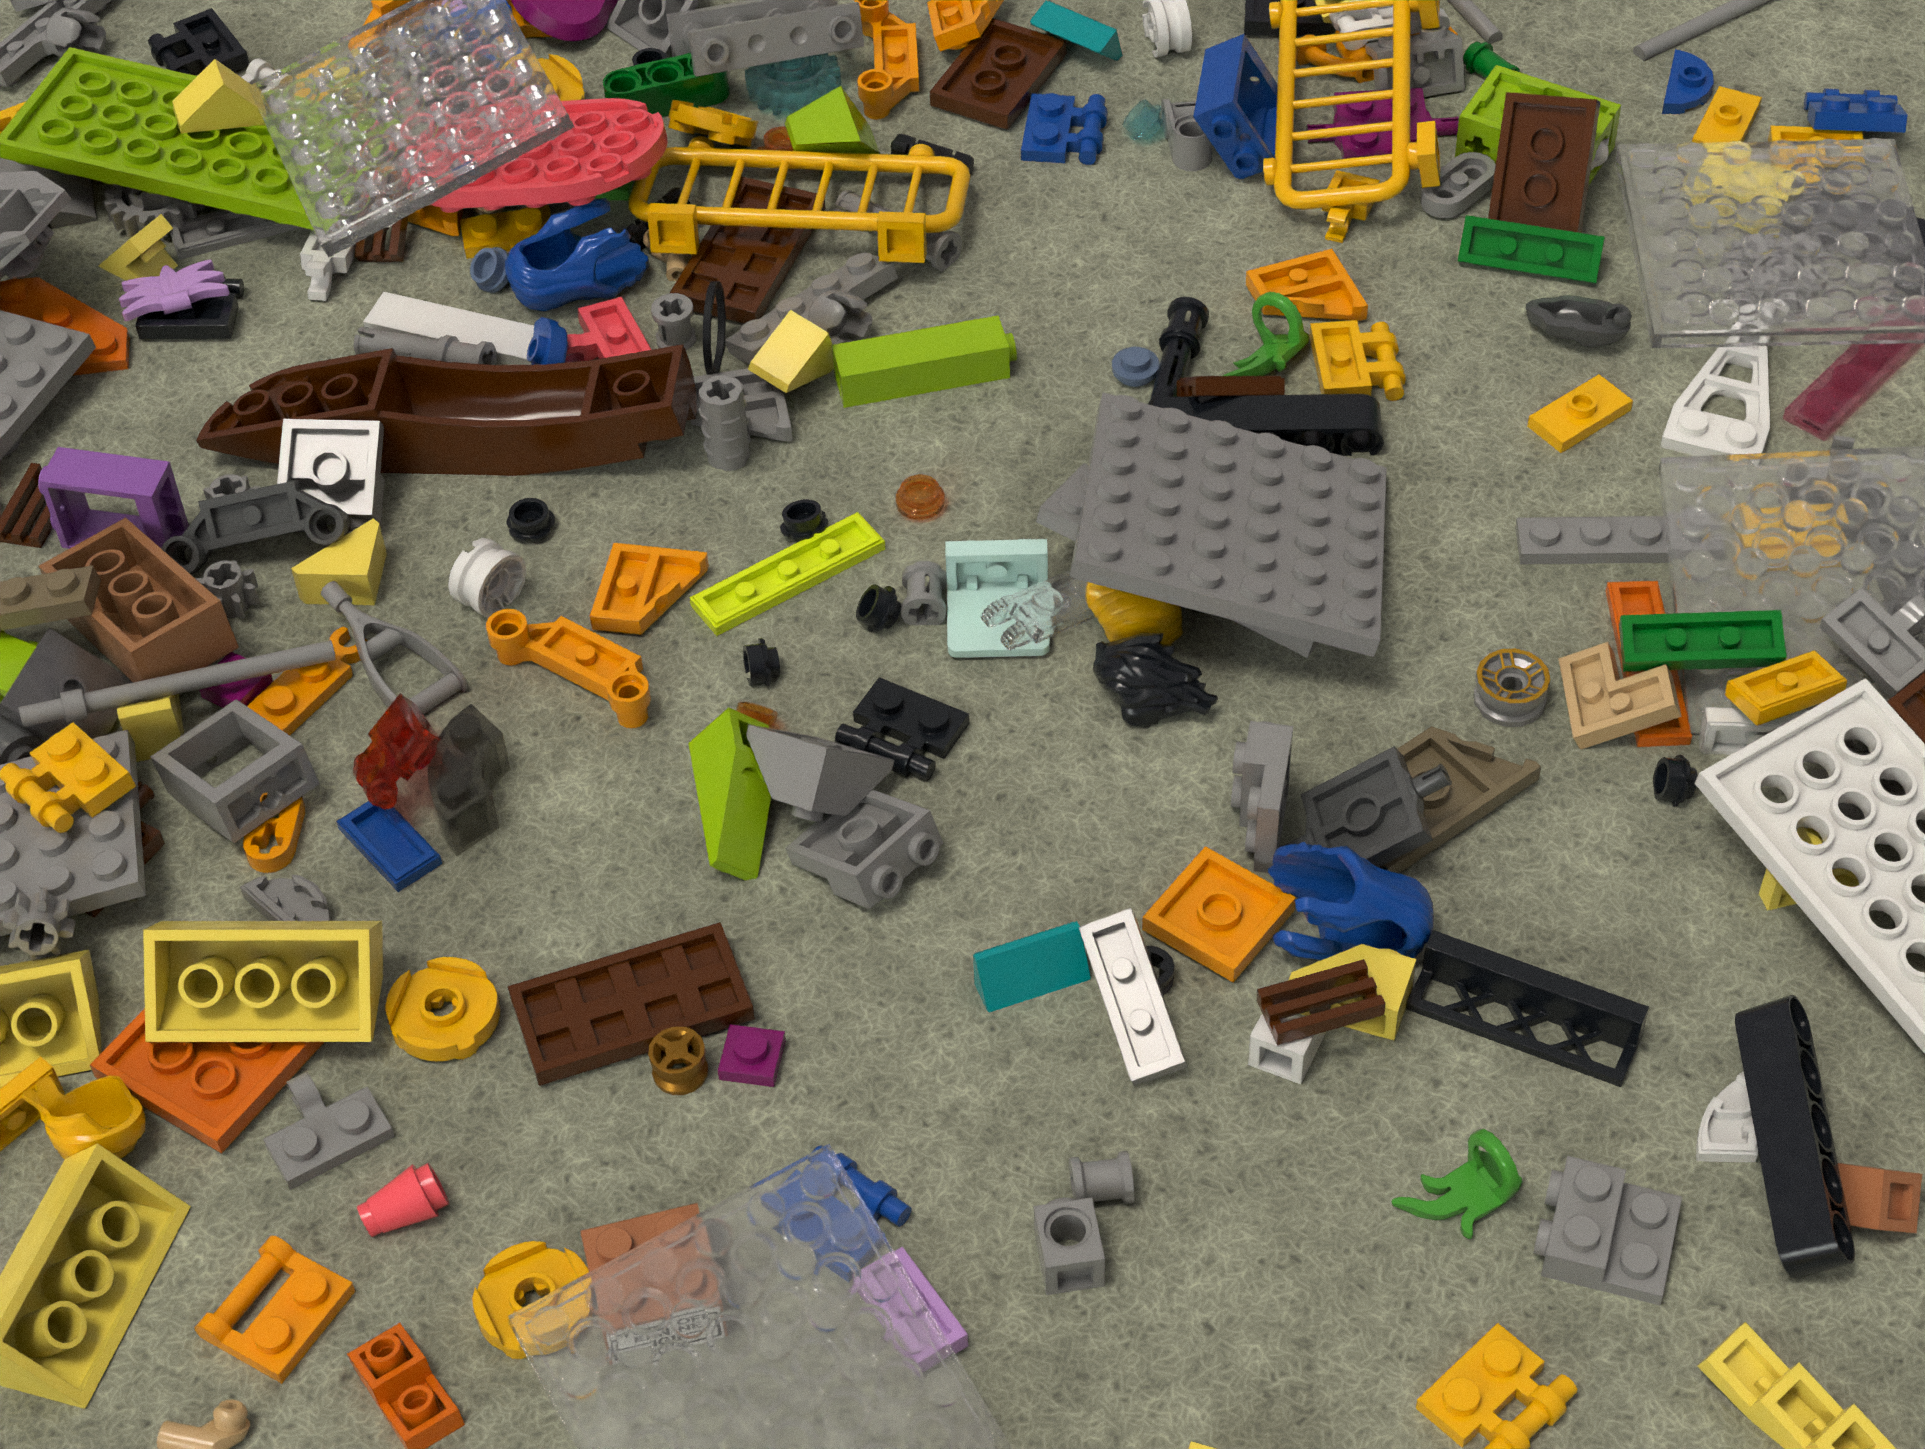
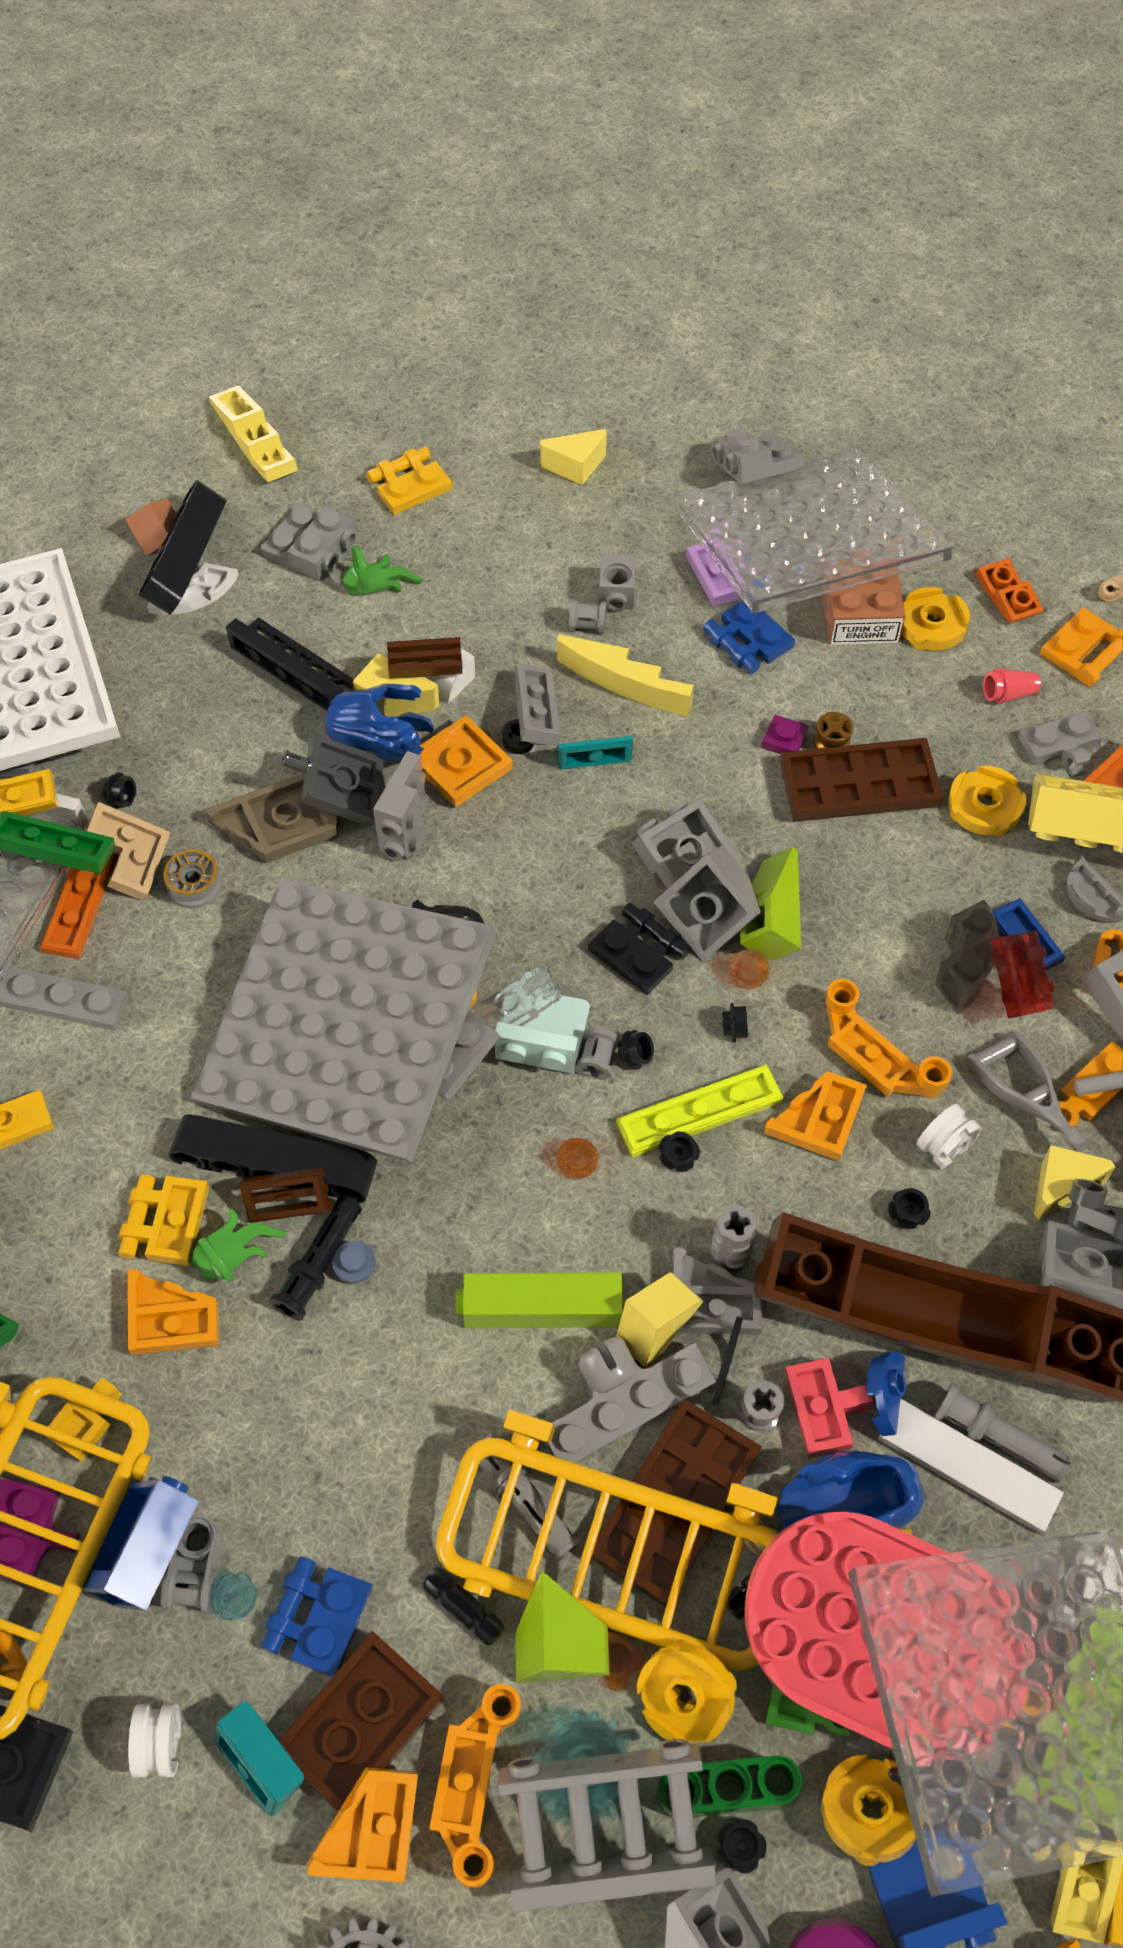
camera: 170 degrees left, 10 degrees up
(489, 269) = (936, 1530): sand blue plate -> none
(1038, 1088) = (612, 670): none -> light yellow slope

